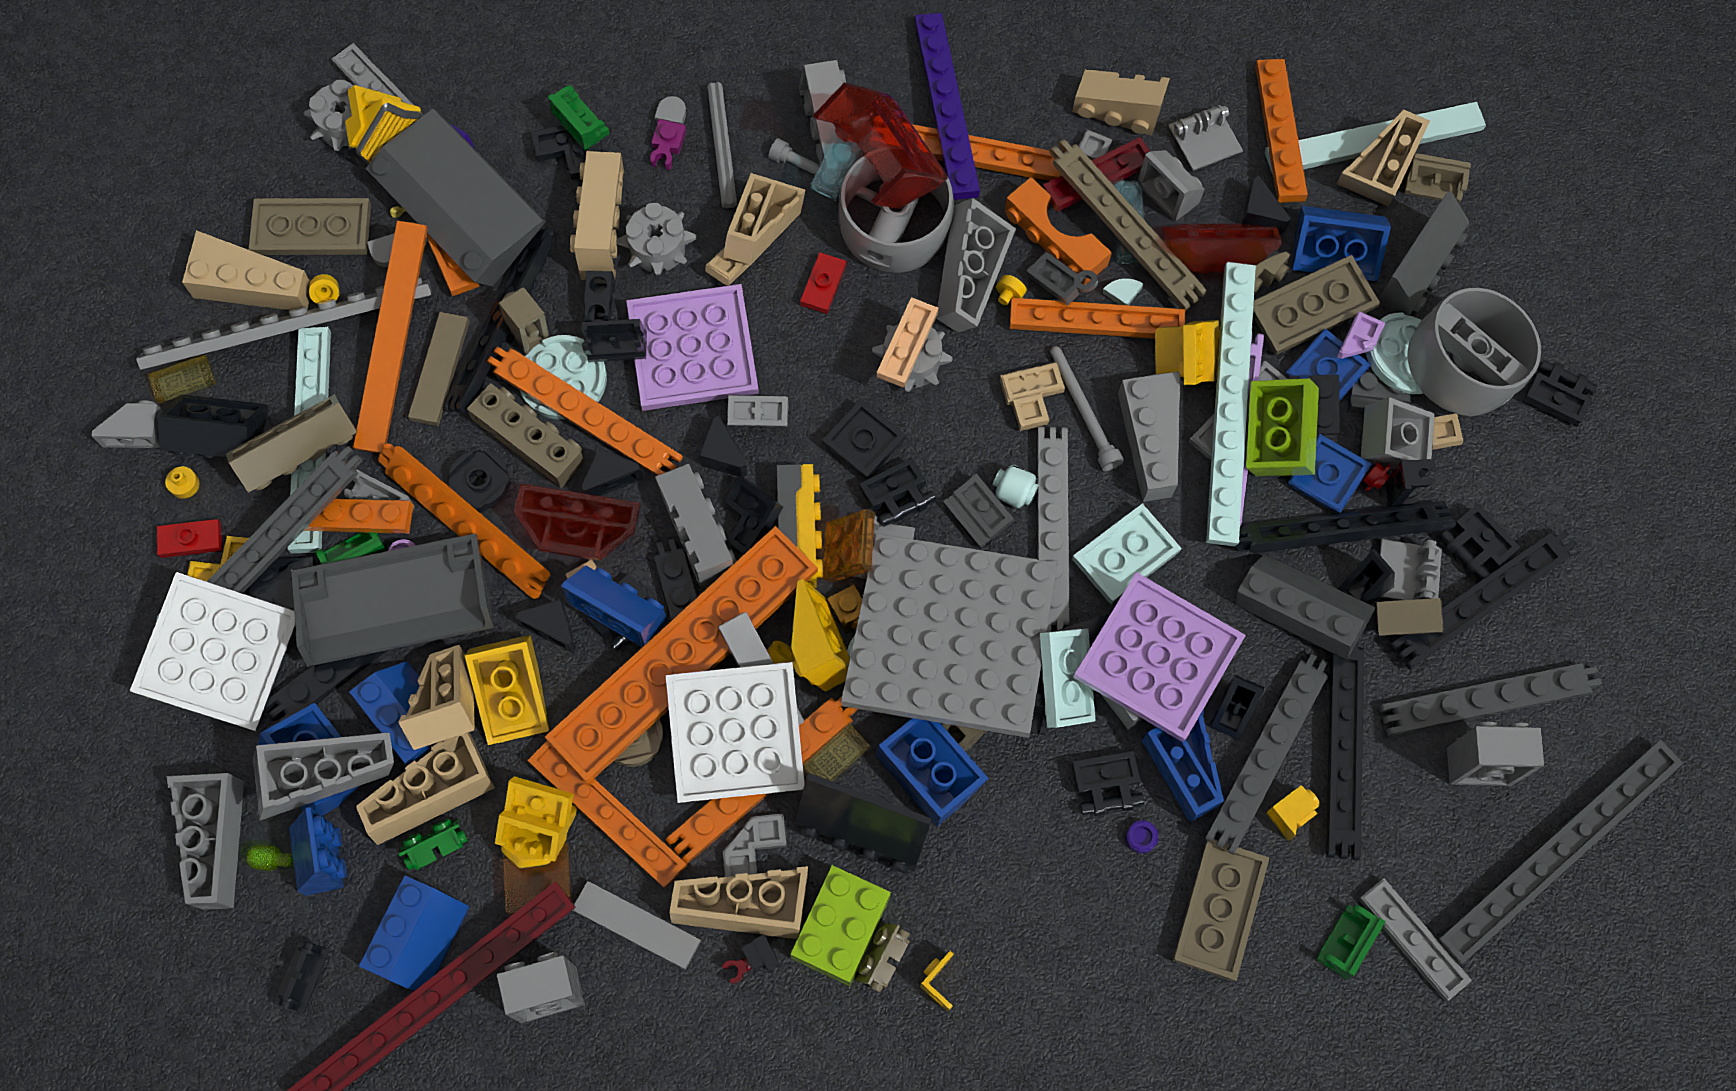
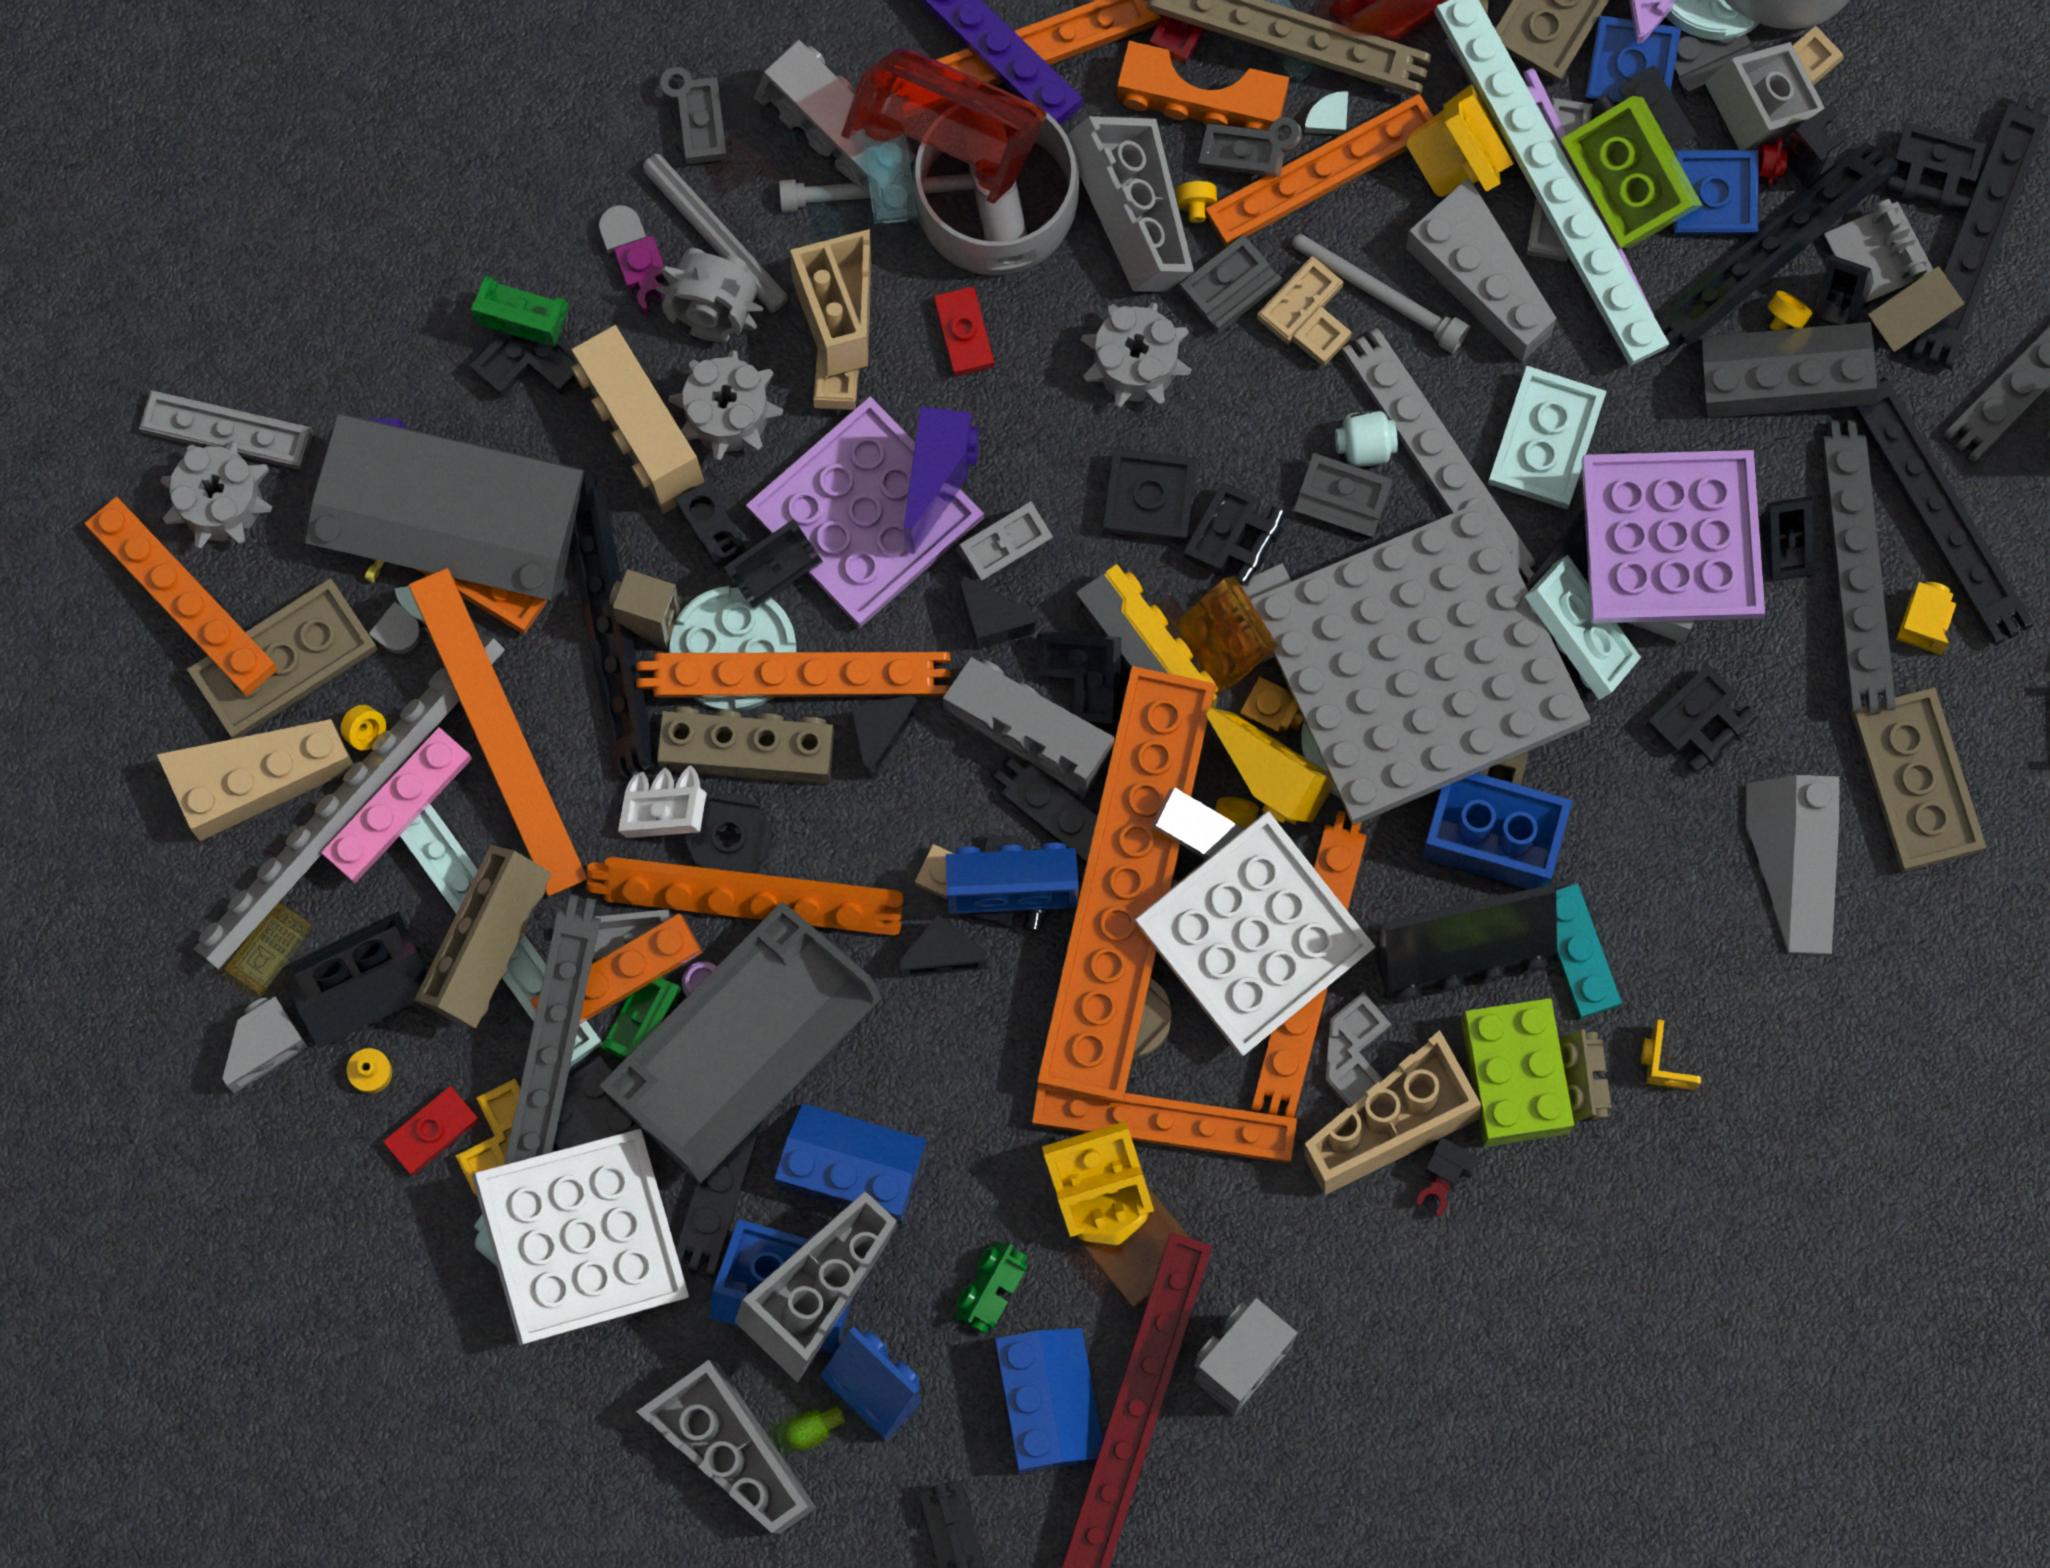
camera: 30 degrees left, 5 degrees up
(281, 159) = (181, 596): none -> orange plate
(306, 342) = (396, 805): none -> bright pink plate
(376, 120) = (280, 474): yellow piece -> none
(427, 789) = (944, 1224): tan wedge -> none
(438, 369) = (576, 734): dark tan tile -> none
(443, 701) = (894, 1117): tan wedge -> none
(453, 437) = (663, 807): none -> white plate
(508, 689) = (948, 1056): yellow slope -> none
(575, 521) = (889, 811): clear red wedge -> none
(636, 925) = (1287, 1223): light grey tile -> none
(689, 172) = (710, 295): none -> light grey brick
(741, 345) = (939, 469): none -> dark purple slope
(759, 77) = (699, 115): none -> dark grey hinge
(837, 754) = (1377, 885): clear yellow tile -> none
(907, 342) = (1133, 345): light nougat plate -> none
(933, 876) = (1582, 956): none -> teal plate
(997, 349) = (1230, 283): none -> dark grey plate
(1114, 899) = (1796, 844): none -> light grey wedge
(1141, 837) = (1778, 756): dark purple tile -> none
(1187, 768) = (1782, 647): blue wedge -> none
(1328, 571) = (1788, 311): none -> yellow tile

